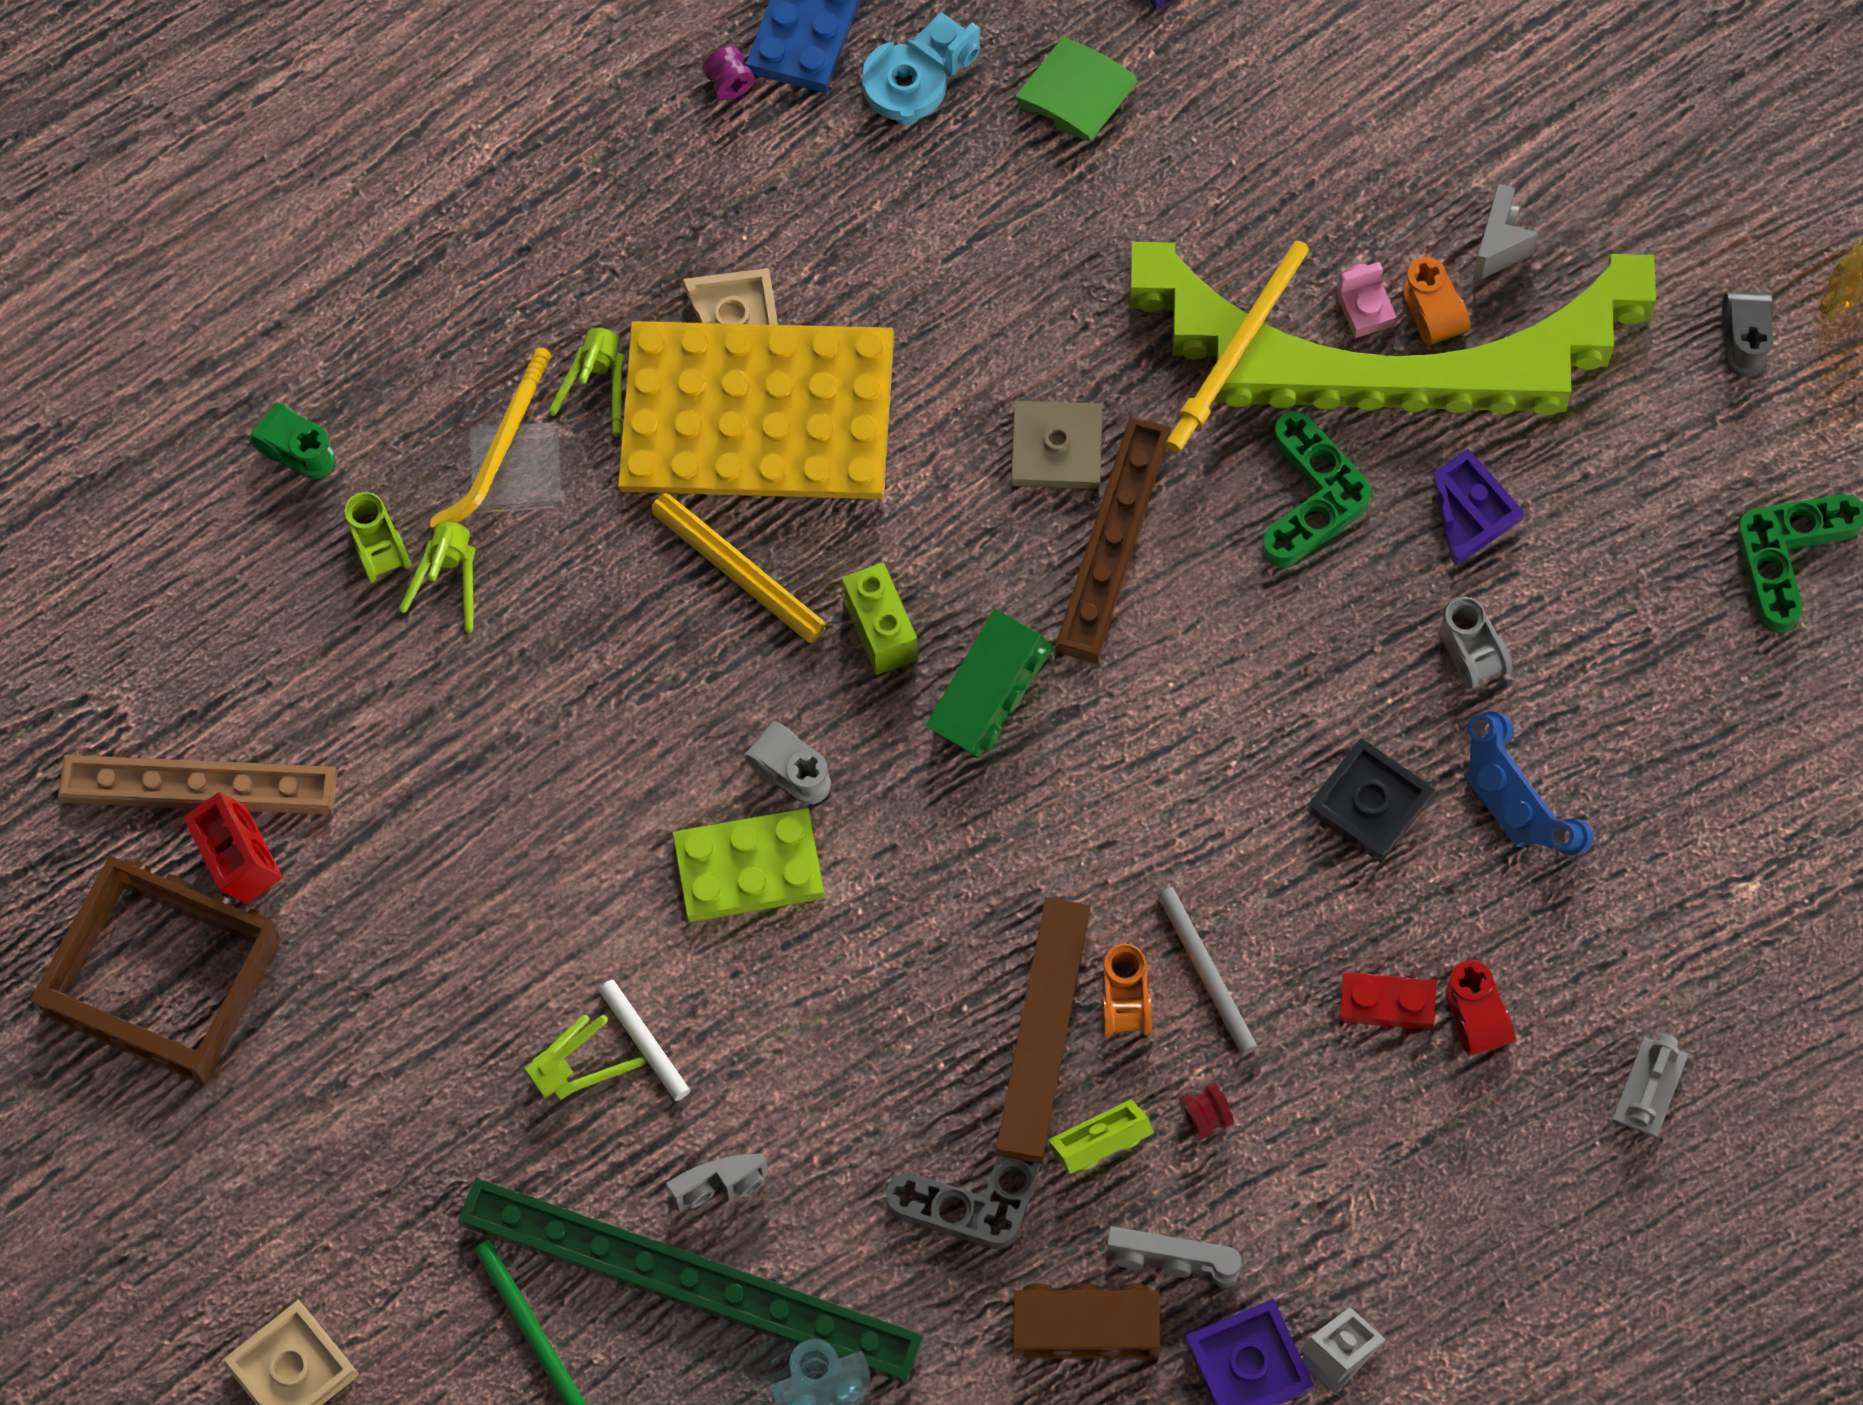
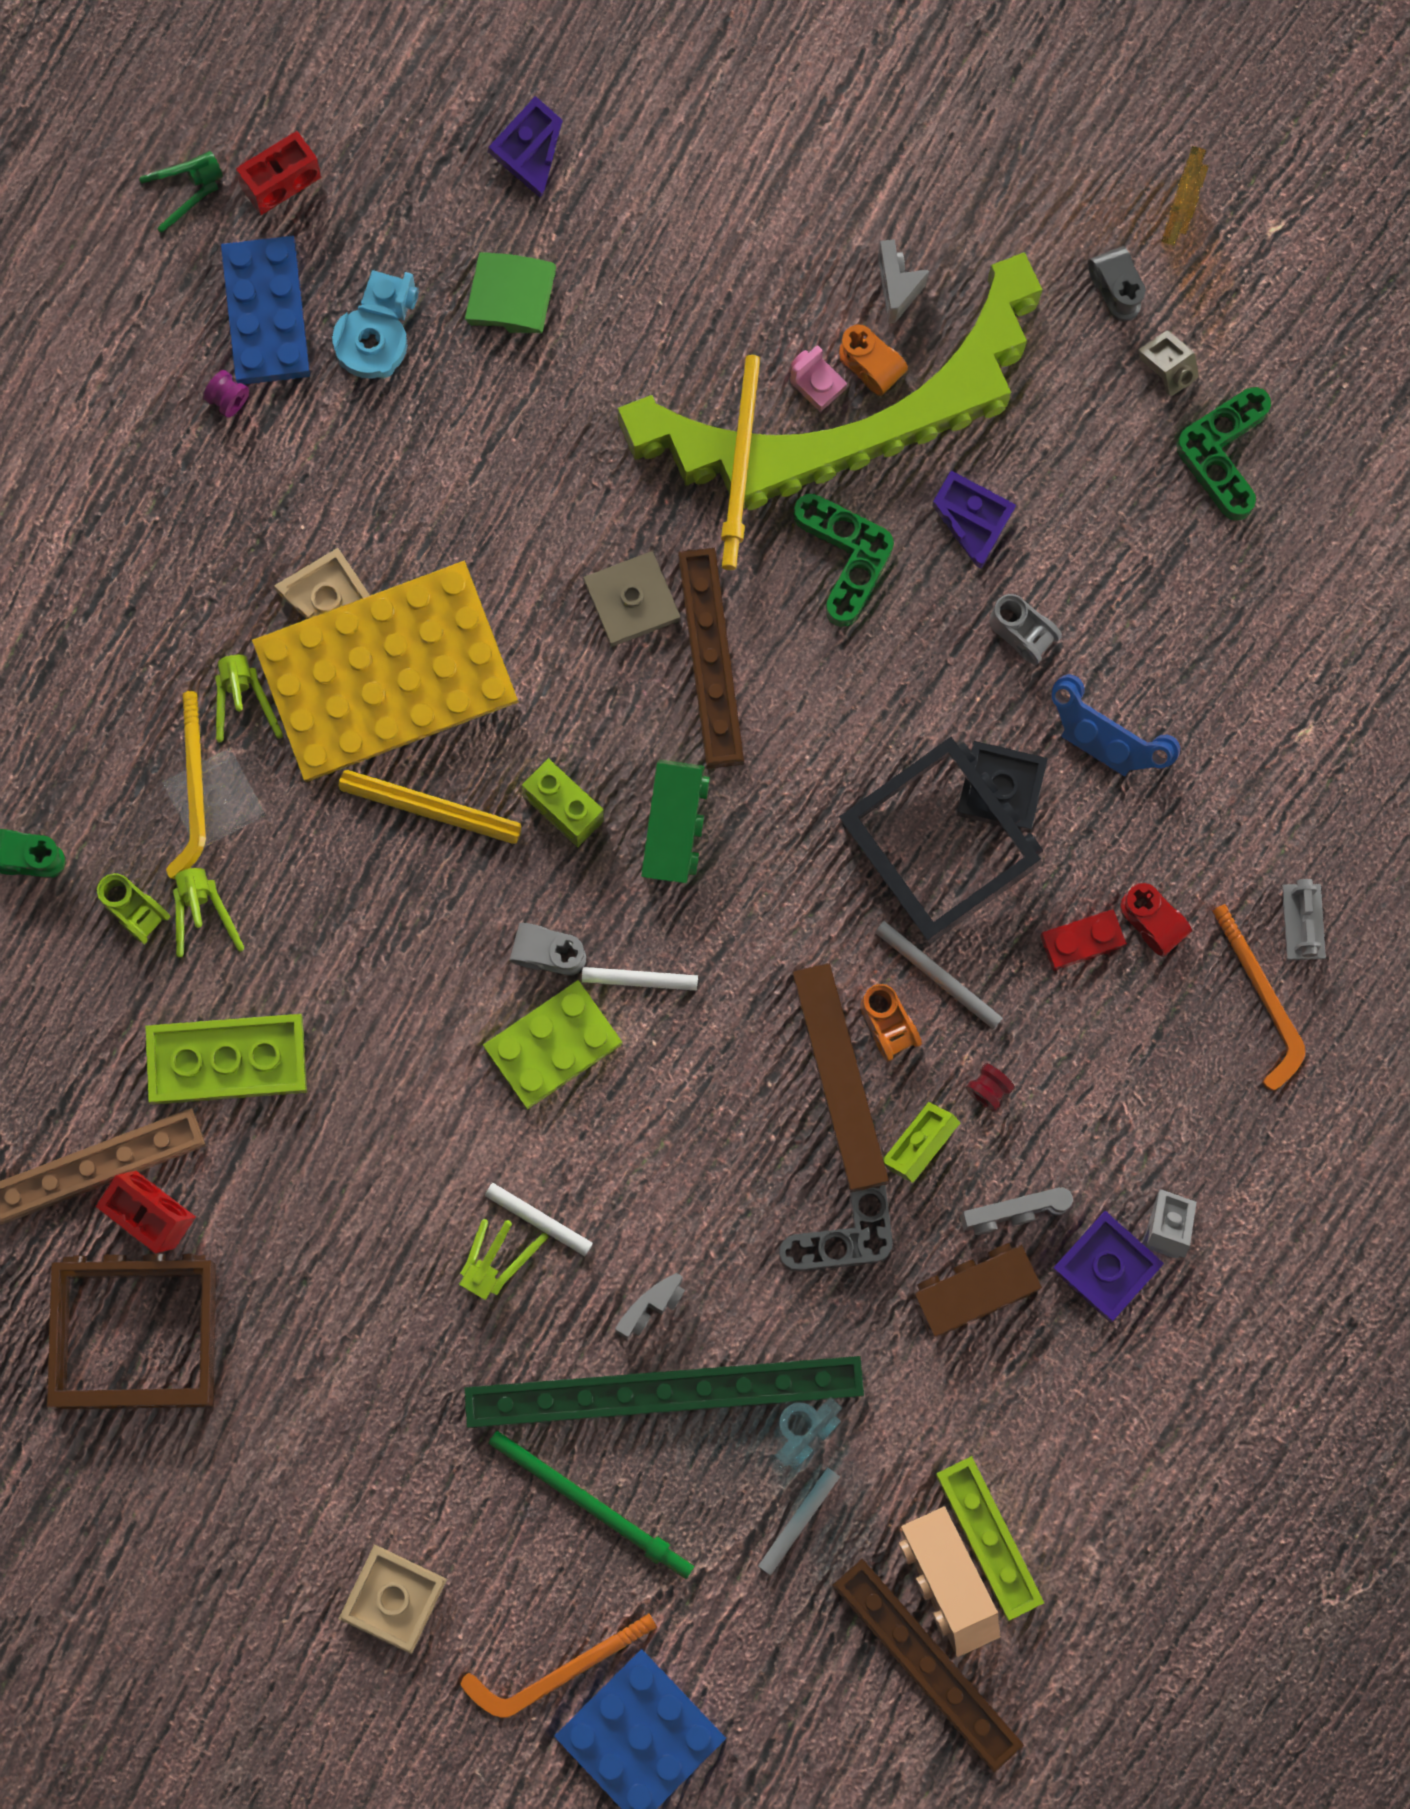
camera: 30 degrees left, 10 degrees up
(396, 732) = (225, 1059): none -> lime plate
(876, 836) = (639, 978): none -> white bar
(1294, 901) = (1004, 814): none -> black window
(1578, 1206) = (1287, 1031): none -> orange piece
(1770, 435) = (1171, 361): none -> dark tan bracket

